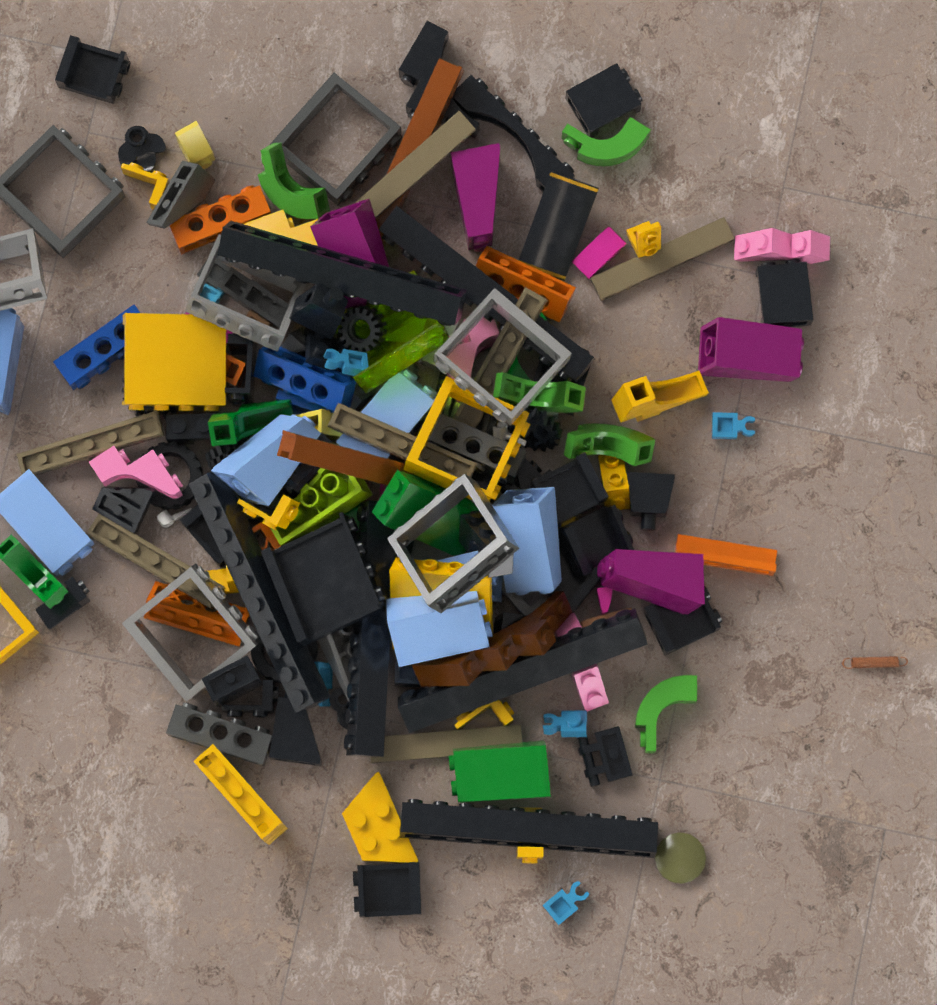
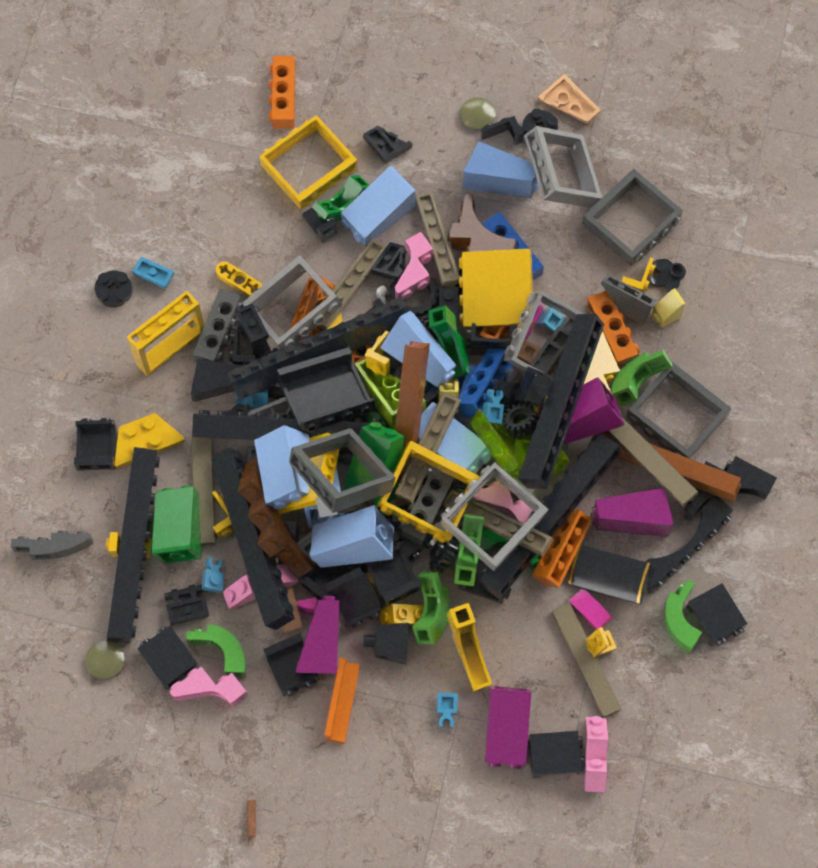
camera: 90 degrees right, 10 degrees down
(88, 397) = (472, 235): none -> arch
(92, 71) = (728, 239): black panel -> none
(136, 828) = (153, 272): none -> dark azure plate
(164, 698) = (235, 272): none -> yellow beam
(169, 892) = (111, 278): none -> black plate
(529, 926) = (59, 546): none -> dark grey slope
(562, 904) = (75, 570): dark azure plate -> none
(676, 776) = (167, 657): none -> black panel
(711, 732) = (199, 685): none -> bright pink arch

